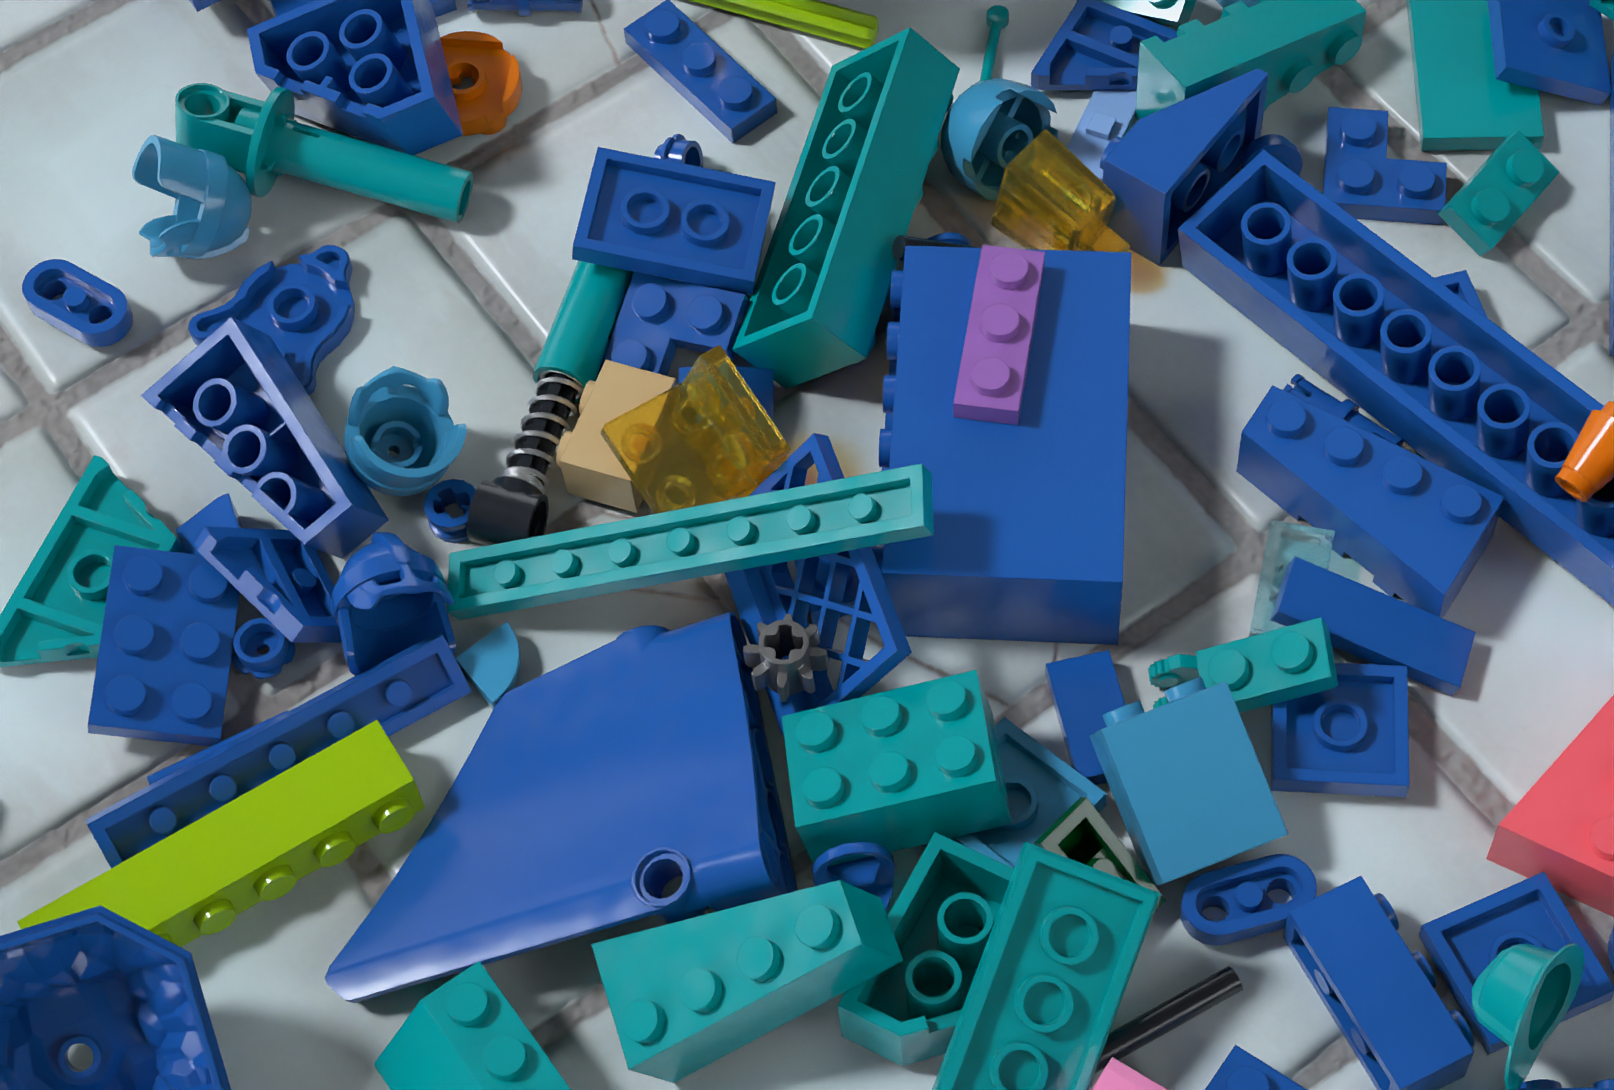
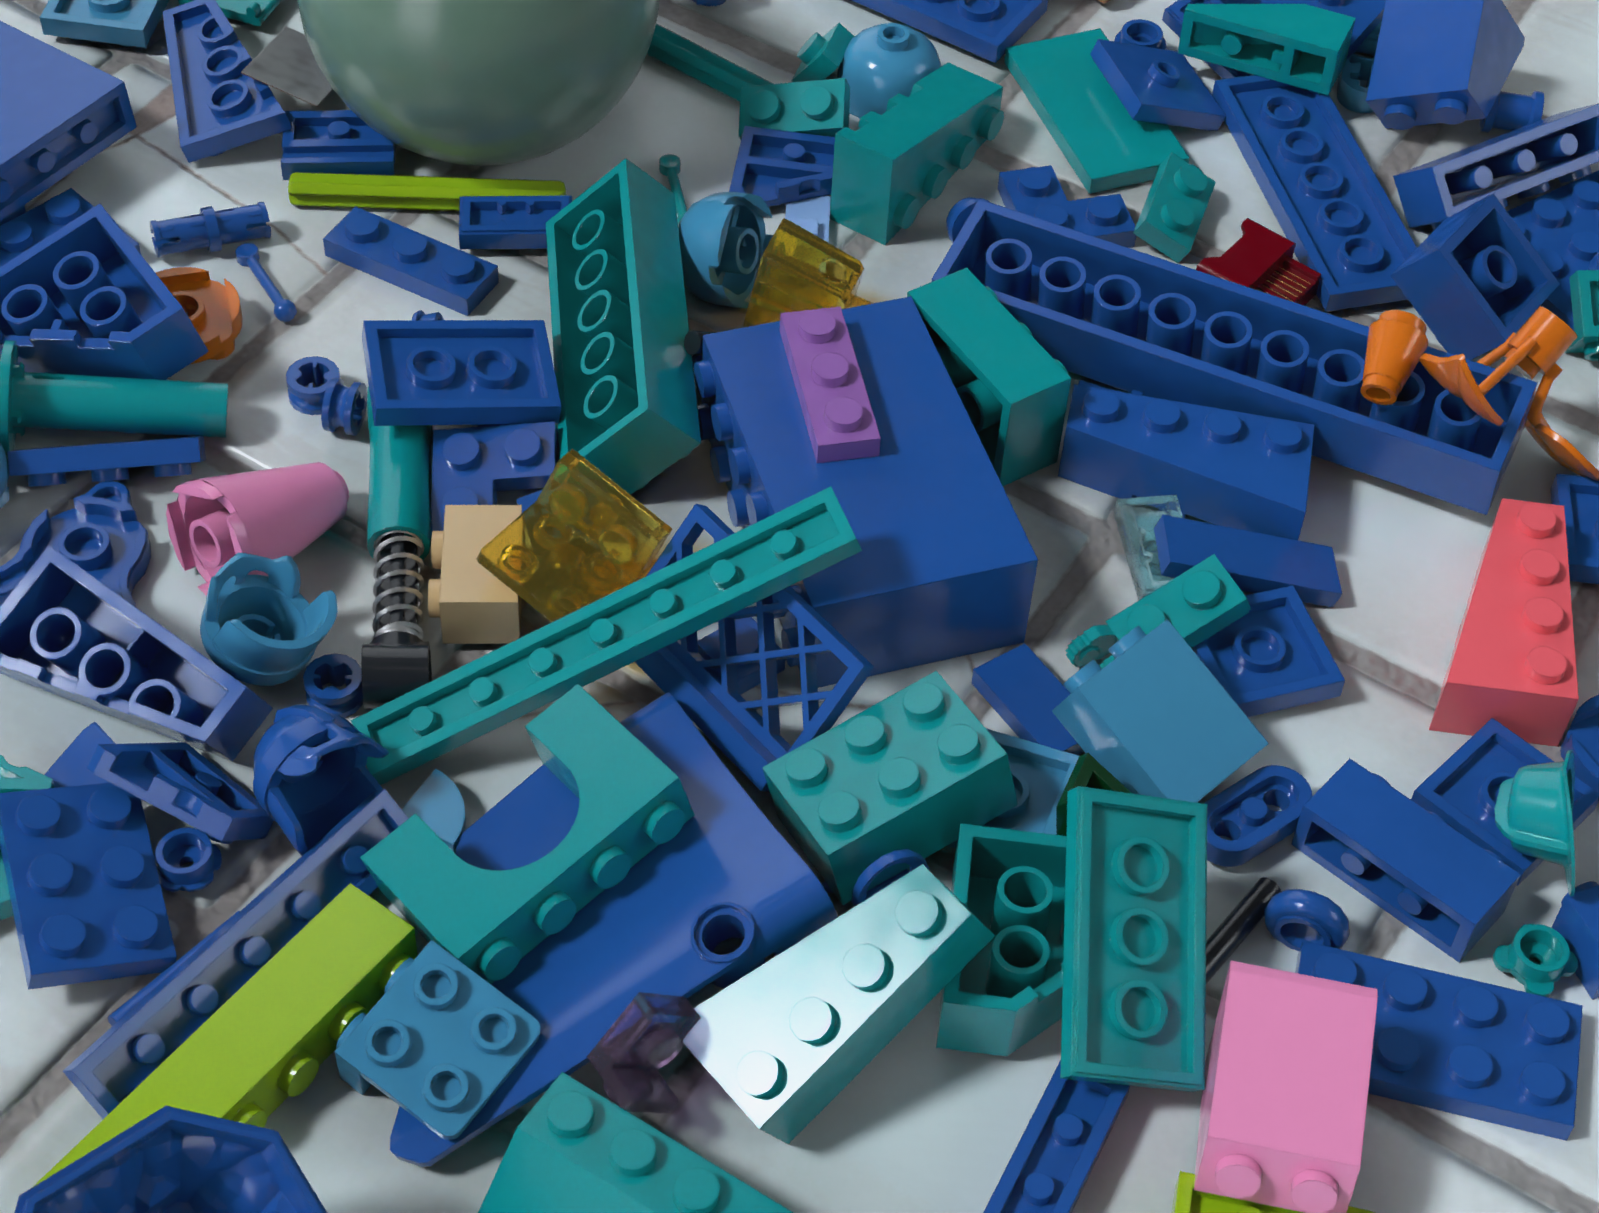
camera: 30 degrees left, 10 degrees down
(341, 222) = (107, 460): none -> blue plate
(390, 895) = (437, 1041): none -> dark azure bracket
(445, 323) = (254, 514): none -> bright pink cone
(548, 964) = (639, 1044): none -> clear purple bracket
(553, 28) = (248, 255): none -> blue hinge
(553, 172) = (308, 372): none -> blue bush
(563, 218) = (344, 406): none -> blue bush
(627, 728) = (500, 915): none -> teal arch
(788, 675) = (747, 711): flat silver gear -> none
(804, 48) = (507, 221): none -> blue plate
(1180, 161) = (903, 223): blue slope -> none
(1190, 350) = (999, 371): none -> teal brick
(1248, 1026) = (1308, 917): none -> blue piece
(1547, 300) = (1264, 263): none -> dark red piece

